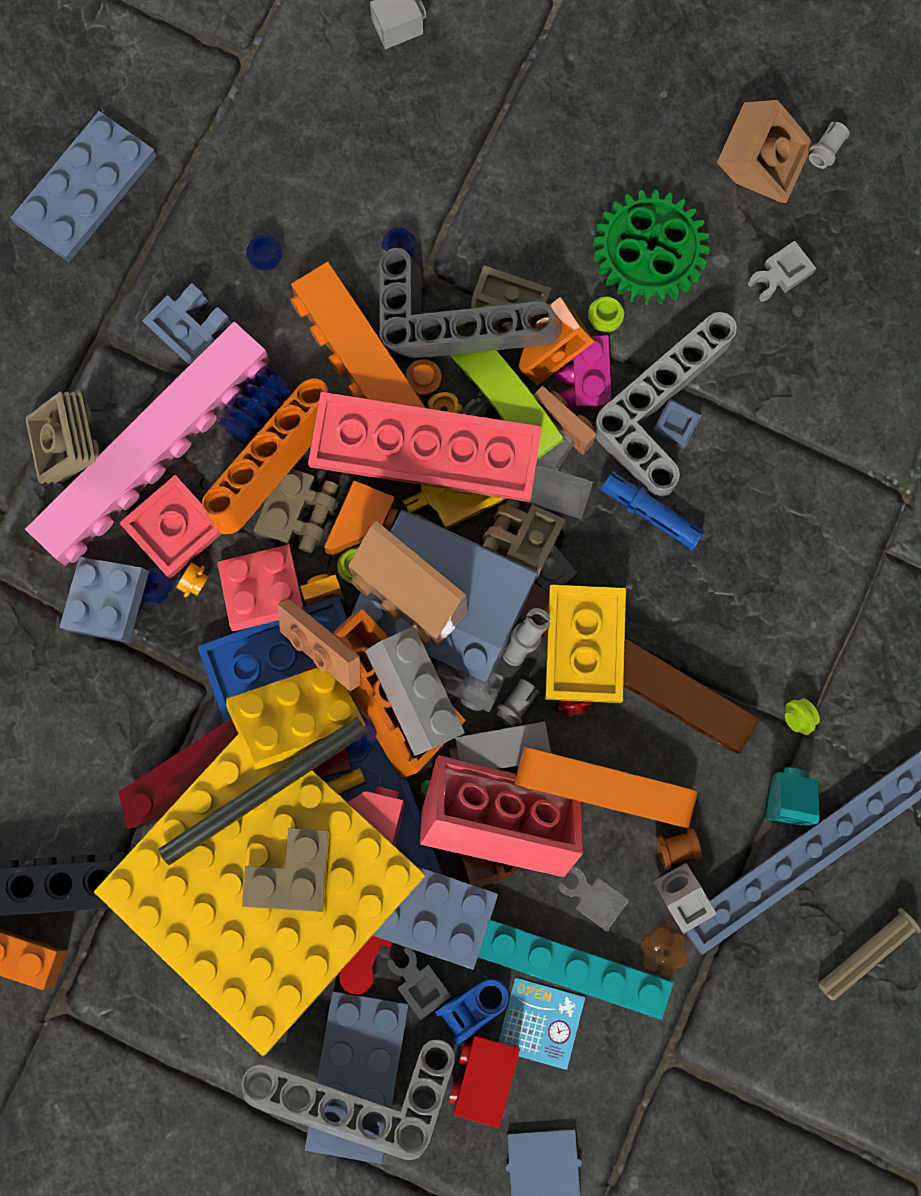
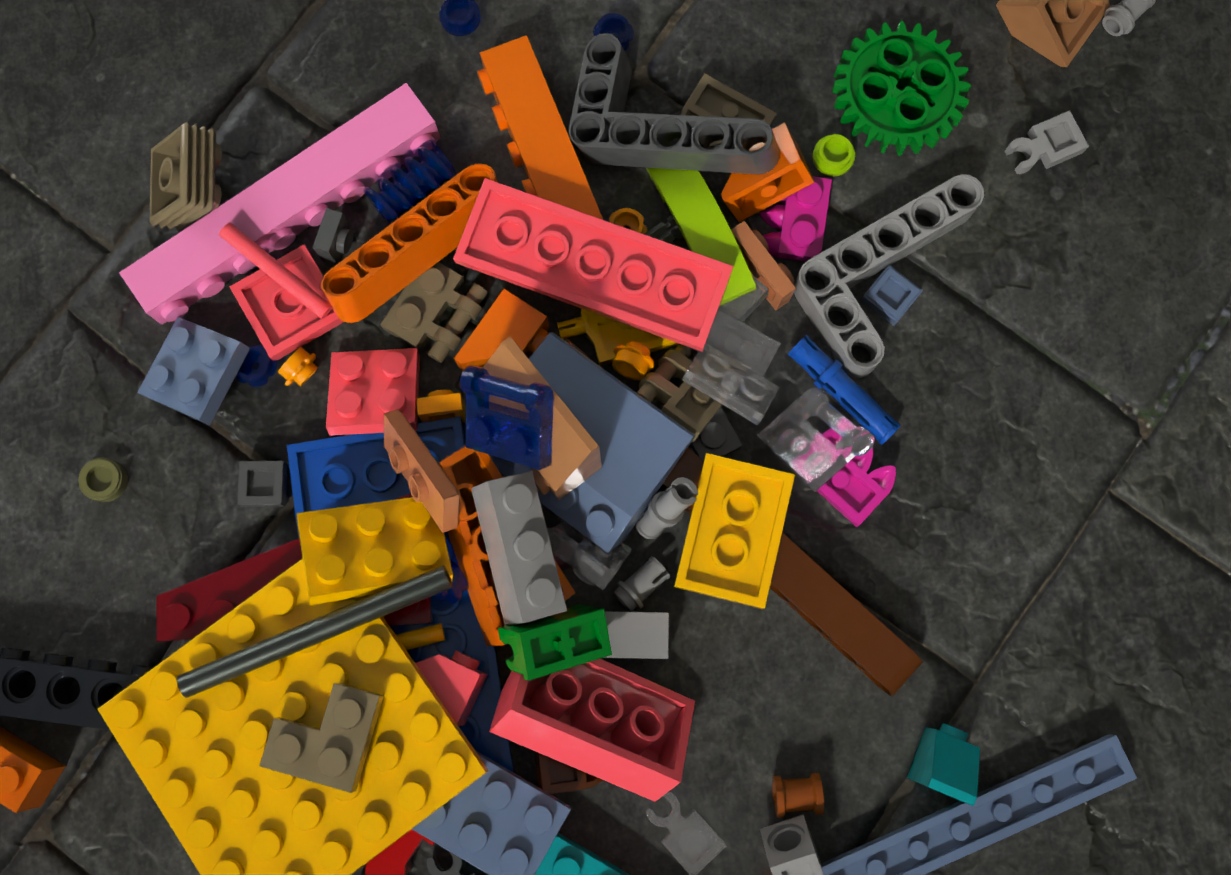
camera: 15 degrees right, 0 degrees up
(45, 706) = (103, 479): none -> olive tile
(158, 502) = (275, 270): none -> coral bar
(179, 330) = (344, 83): sand blue plate -> none
(183, 683) = (262, 484): none -> dark grey plate
(198, 464) = (333, 237): none -> dark grey plate
(387, 597) = (505, 430): none -> clear blue plate
(424, 377) = (610, 187): orange plate -> none
(460, 759) = (557, 641): none -> green hinge
(473, 520) = (632, 360): none -> light orange plate
(558, 523) = (731, 384): none -> clear plate
(572, 708) = (705, 603): red plate -> none
(605, 787) = (724, 706): orange beam -> none
(631, 566) = (805, 448): none -> clear plate
(666, 582) = (852, 489): none -> dark pink plate
(801, 716) = (974, 666): lime plate -> none

